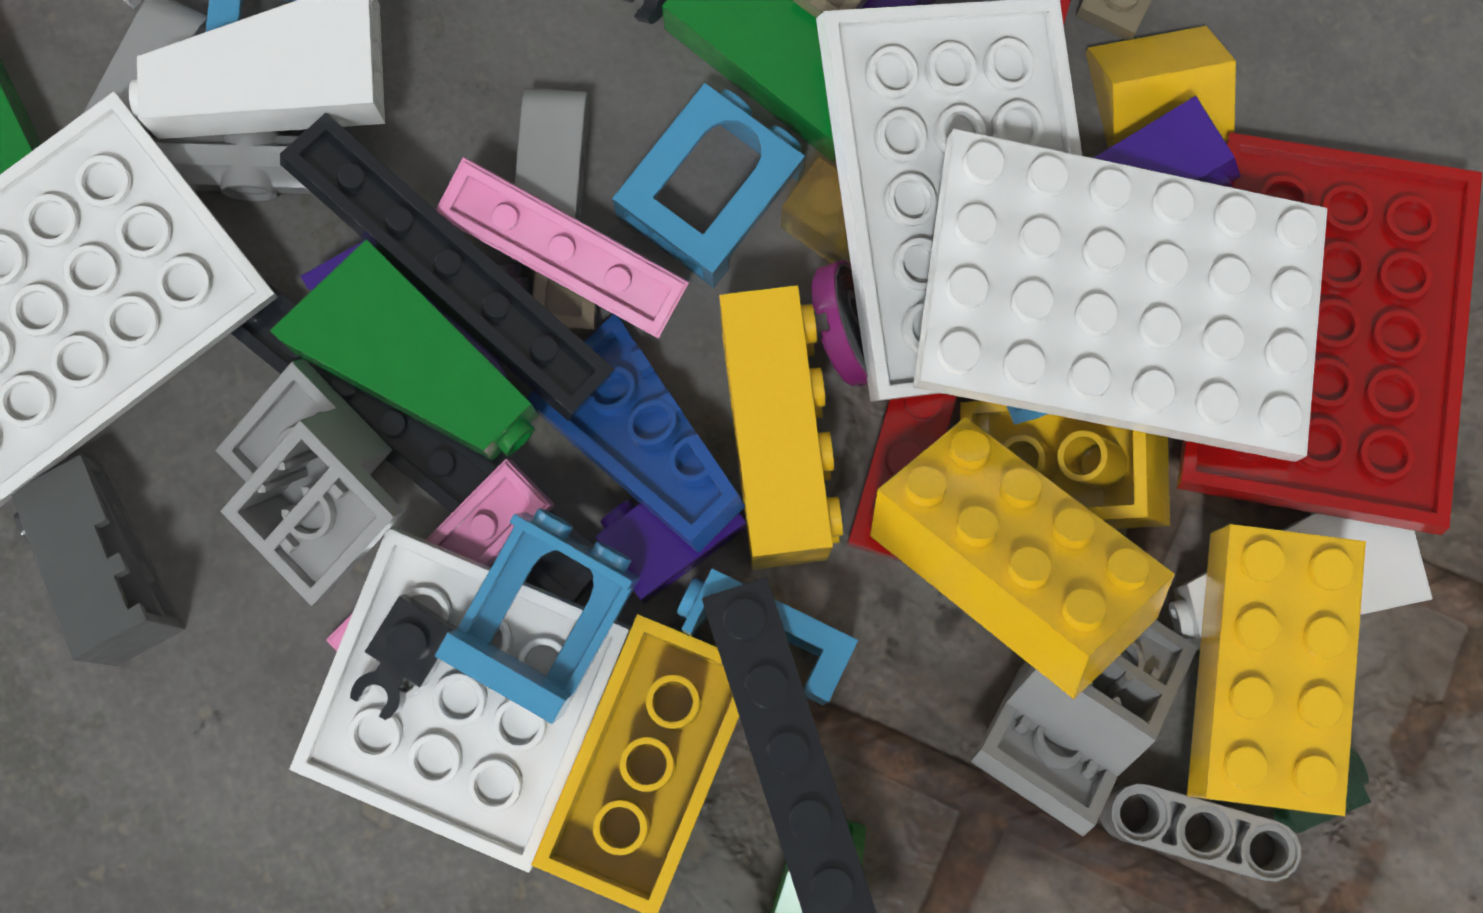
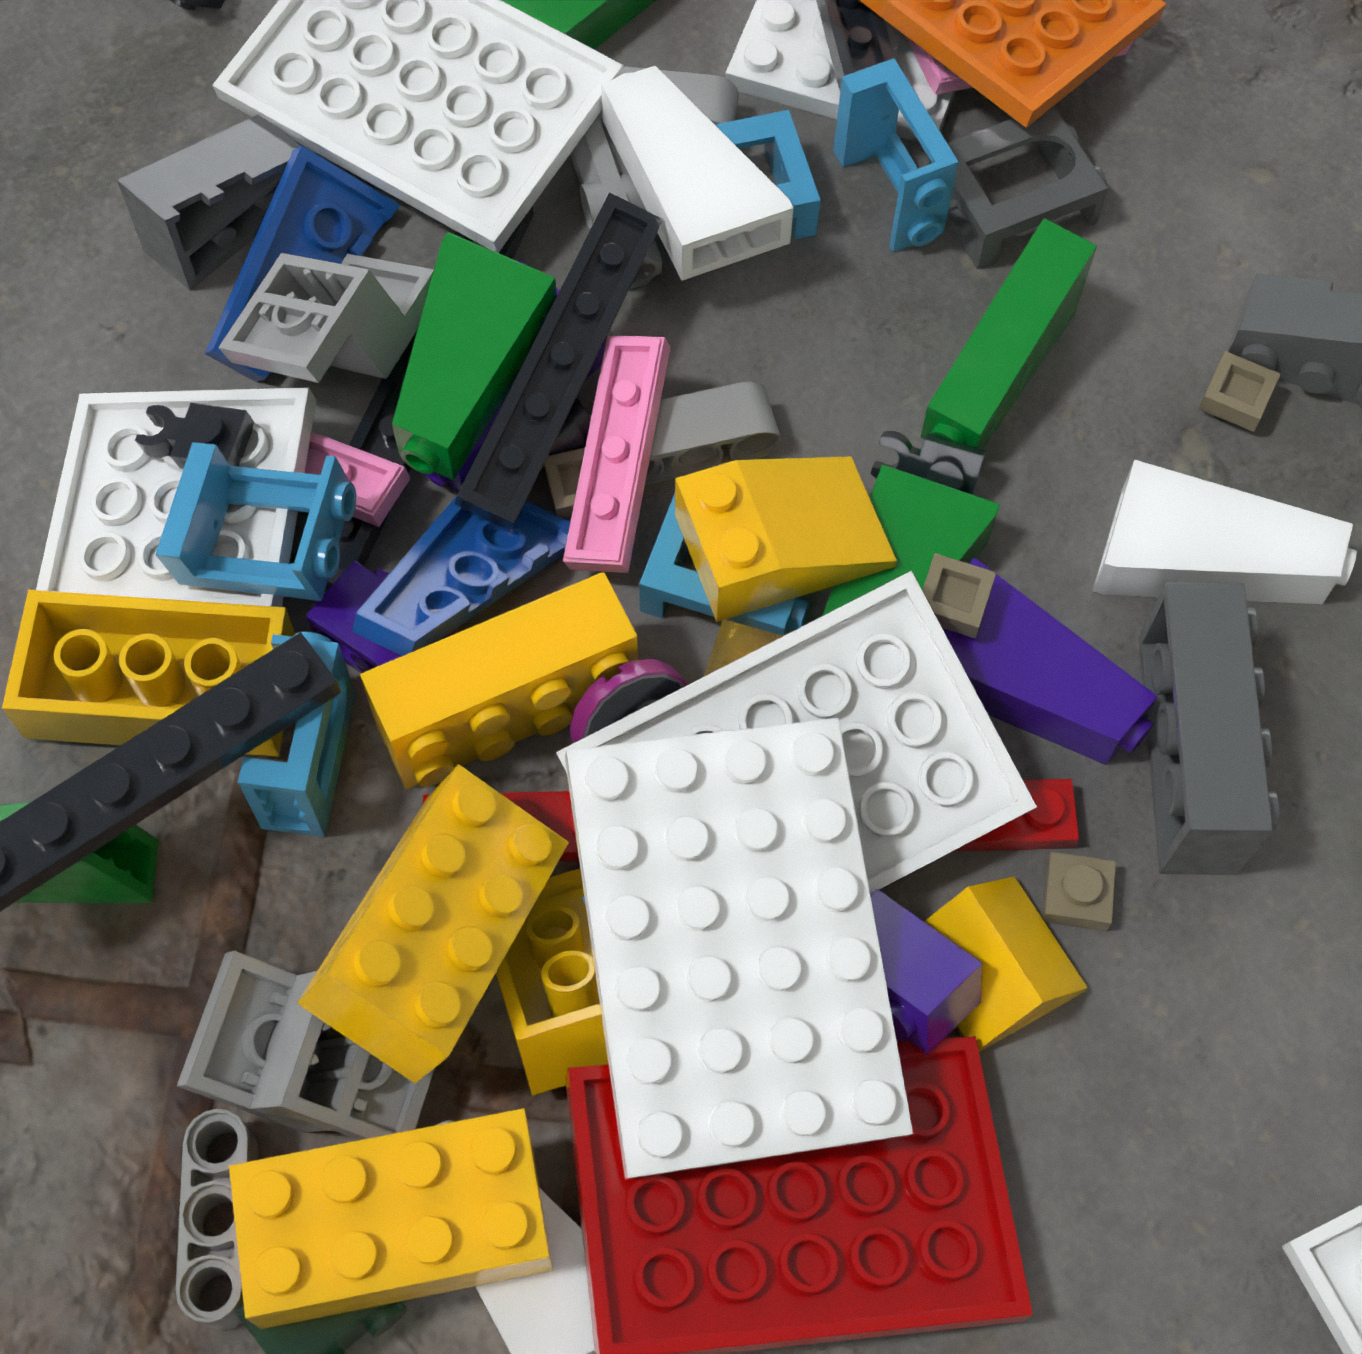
camera: 70 degrees right, 15 degrees down
(179, 485) = (312, 215): none -> blue wing
(712, 122) = (778, 530): none -> yellow slope

